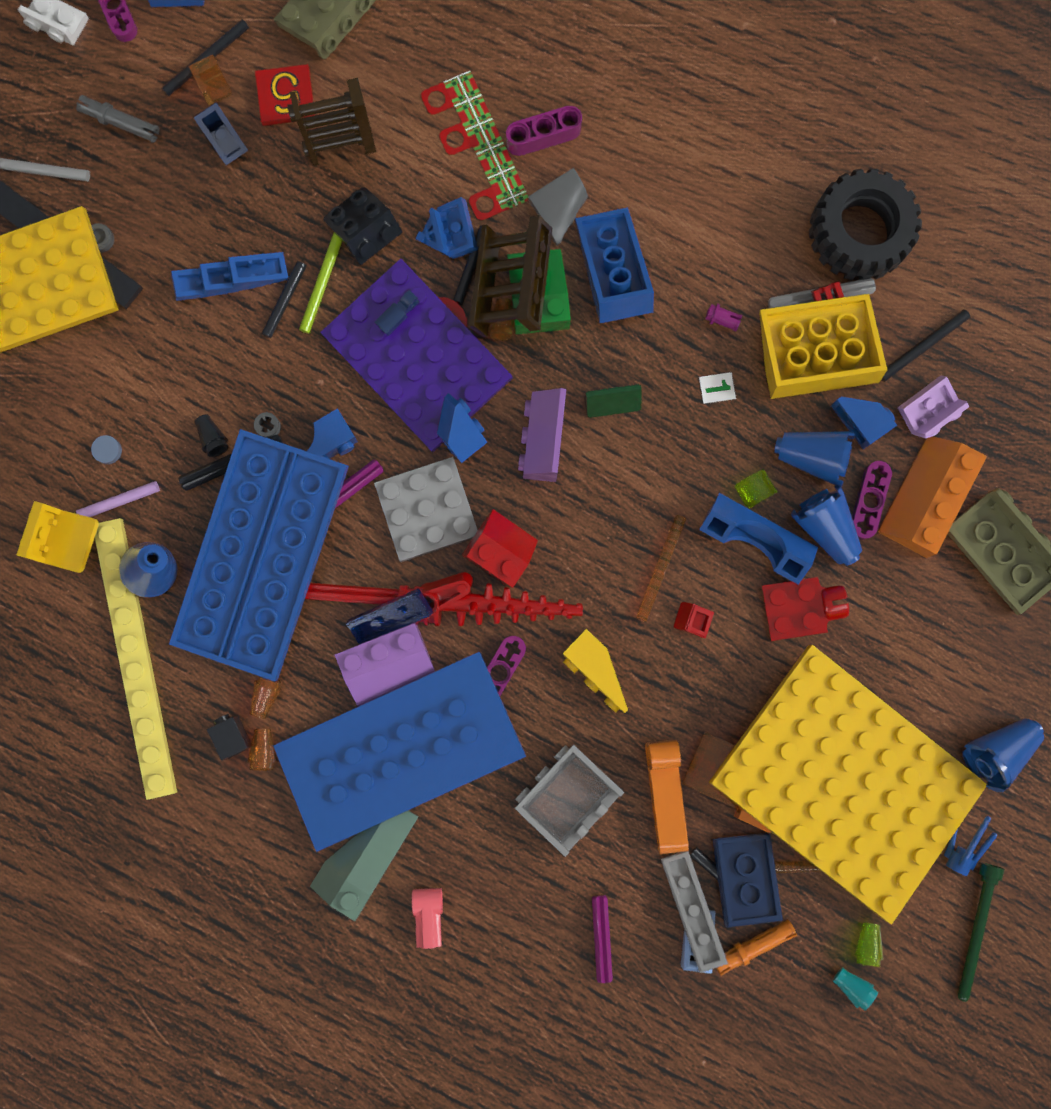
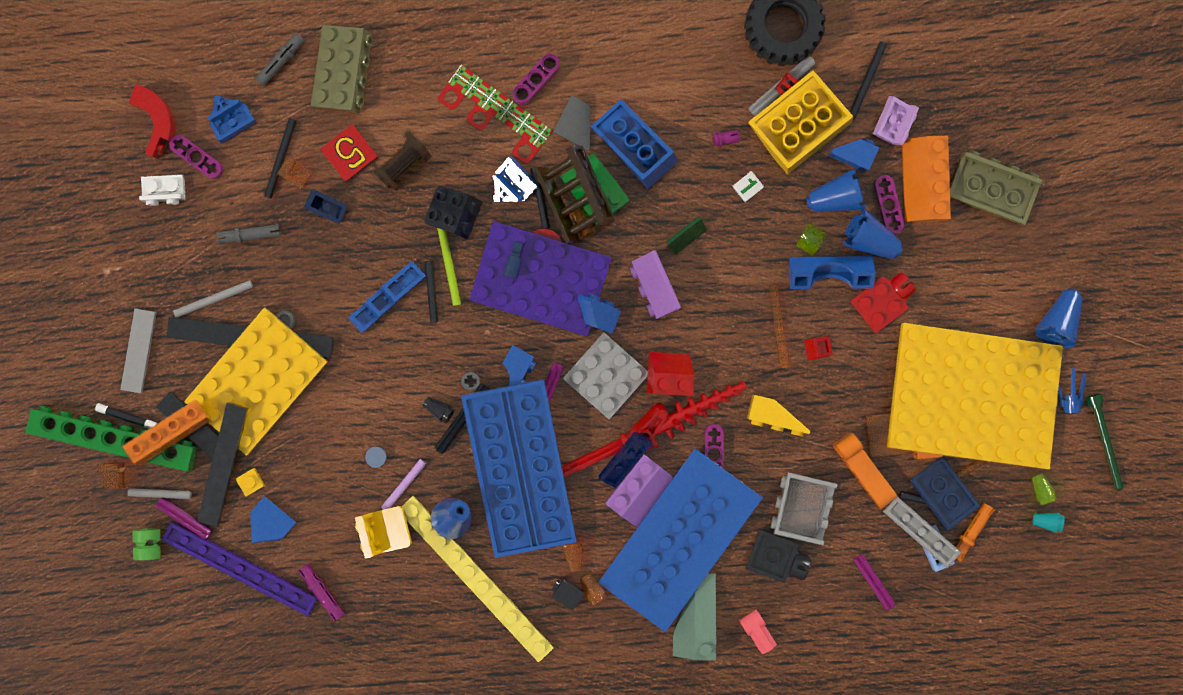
camera: 25 degrees left, 5 degrees up
(502, 841) = (777, 558): none -> black plate

